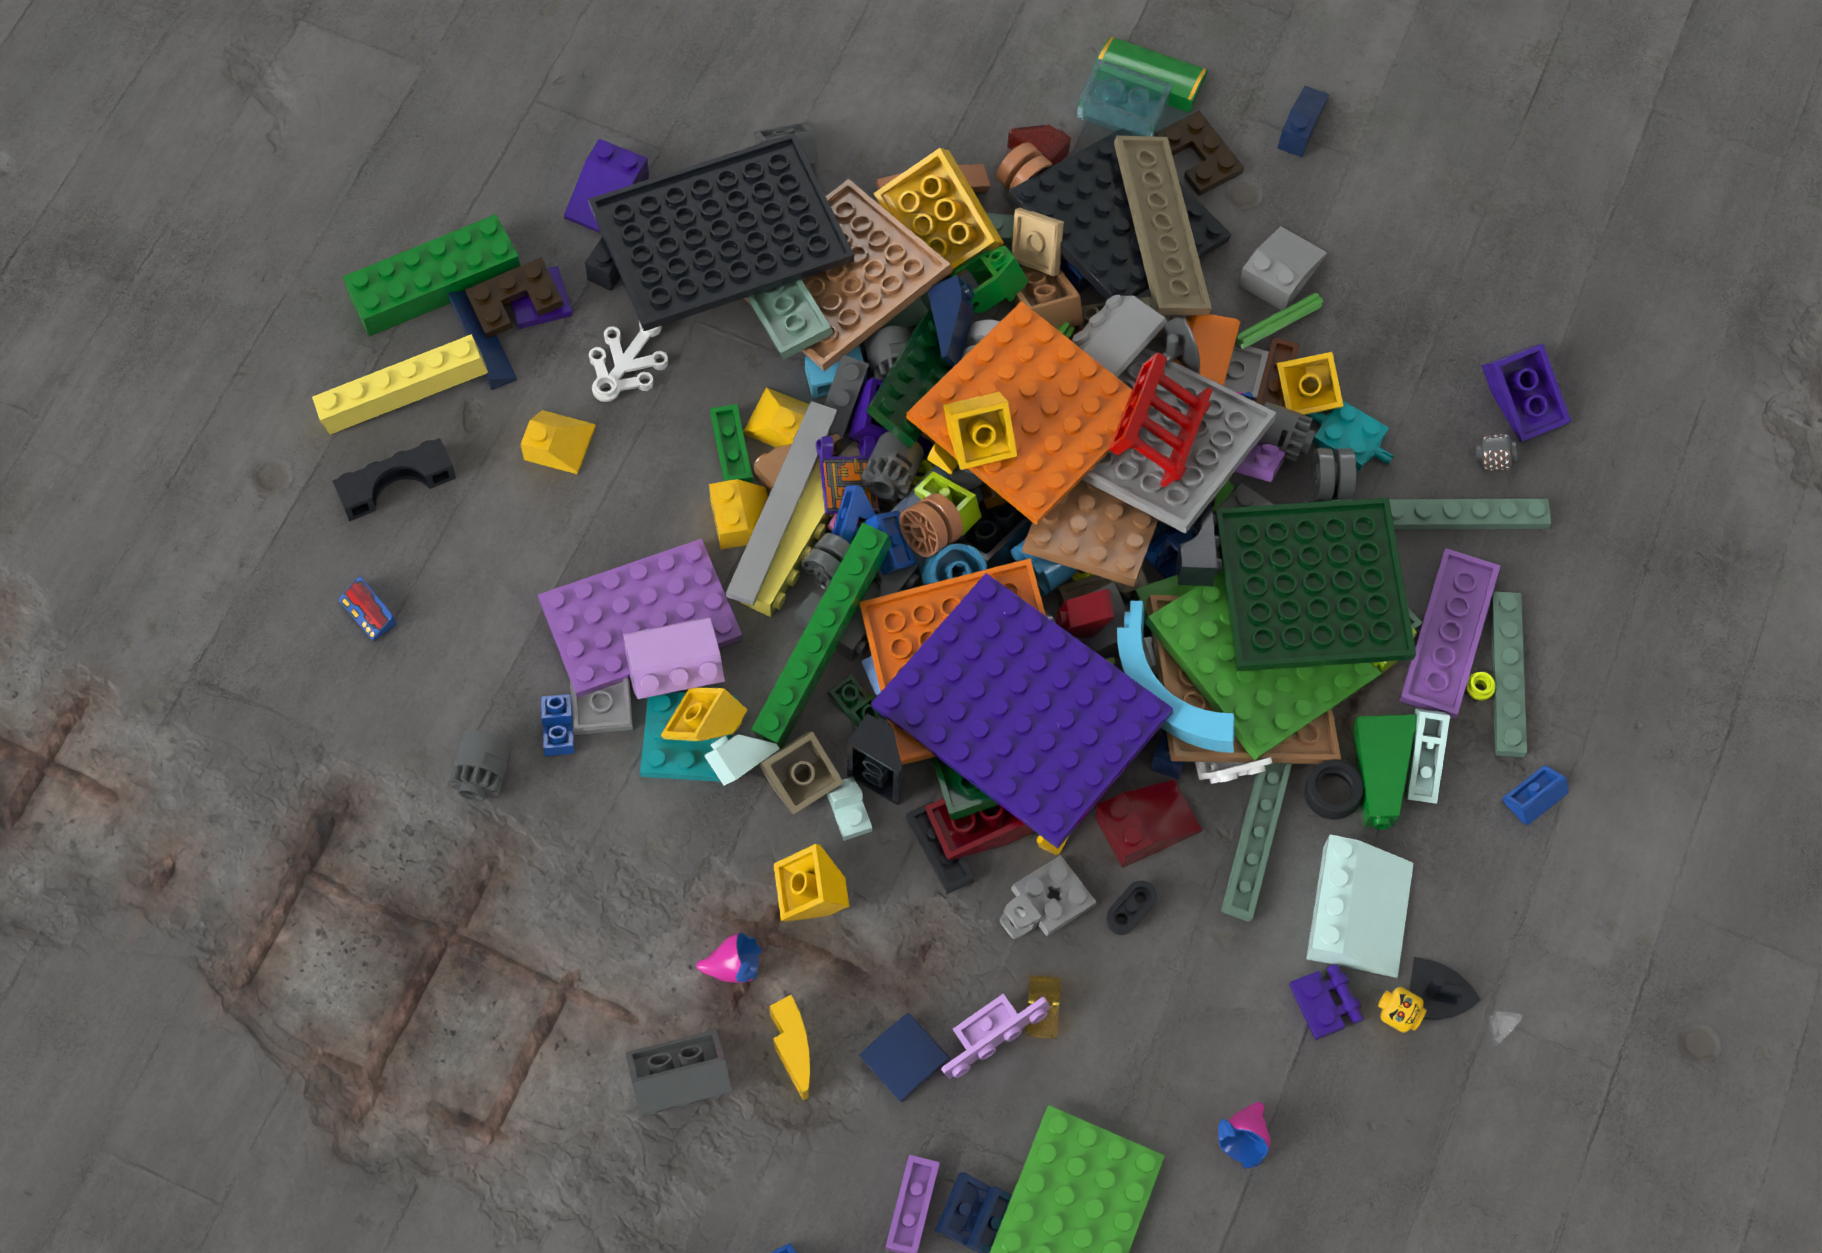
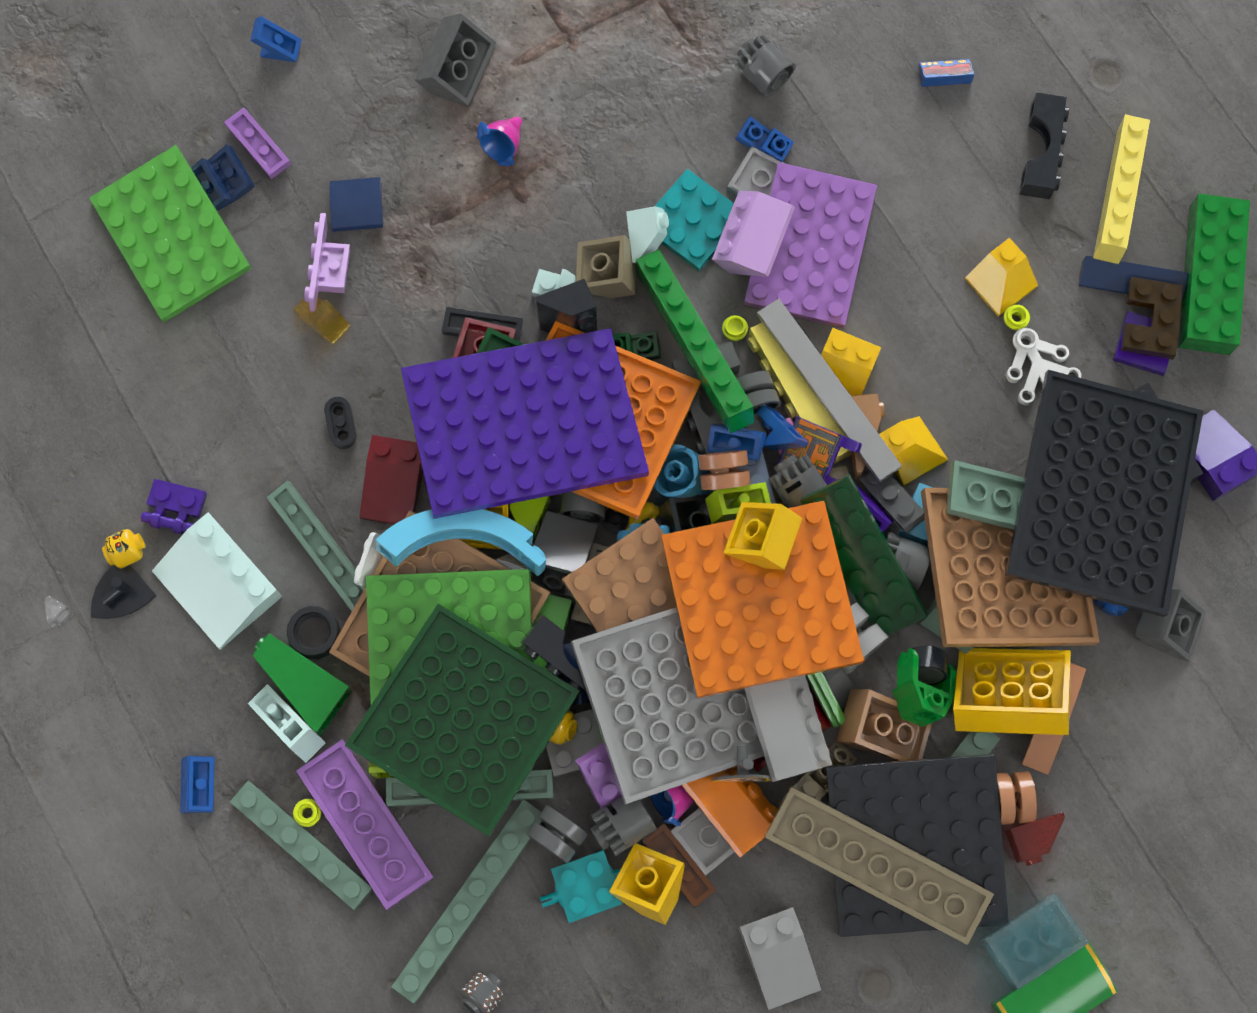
camera: 130 degrees right, 10 degrees up
(585, 401) = (1021, 312): none -> neon yellow plate
(705, 715) = (690, 223): yellow slope -> none
(730, 443) = (912, 397): green plate -> none
(773, 629) = (735, 328): none -> neon yellow plate
(792, 1043) = (417, 139): yellow slope -> none
(809, 885) = (516, 220): yellow slope -> none
(952, 316) = (901, 620): dark blue slope -> none
(1034, 908) = (388, 357): light grey plate -> none
(1037, 241) = (933, 750): tan tile -> none
(1086, 614) = (566, 524): dark red slope -> none
(1136, 416) = (702, 686): red fence -> none
(1218, 160) = (919, 987): dark brown plate -> none
(1245, 1136) = (130, 379): blue hat -> none
(1278, 320) = (728, 881): bright green axle -> none

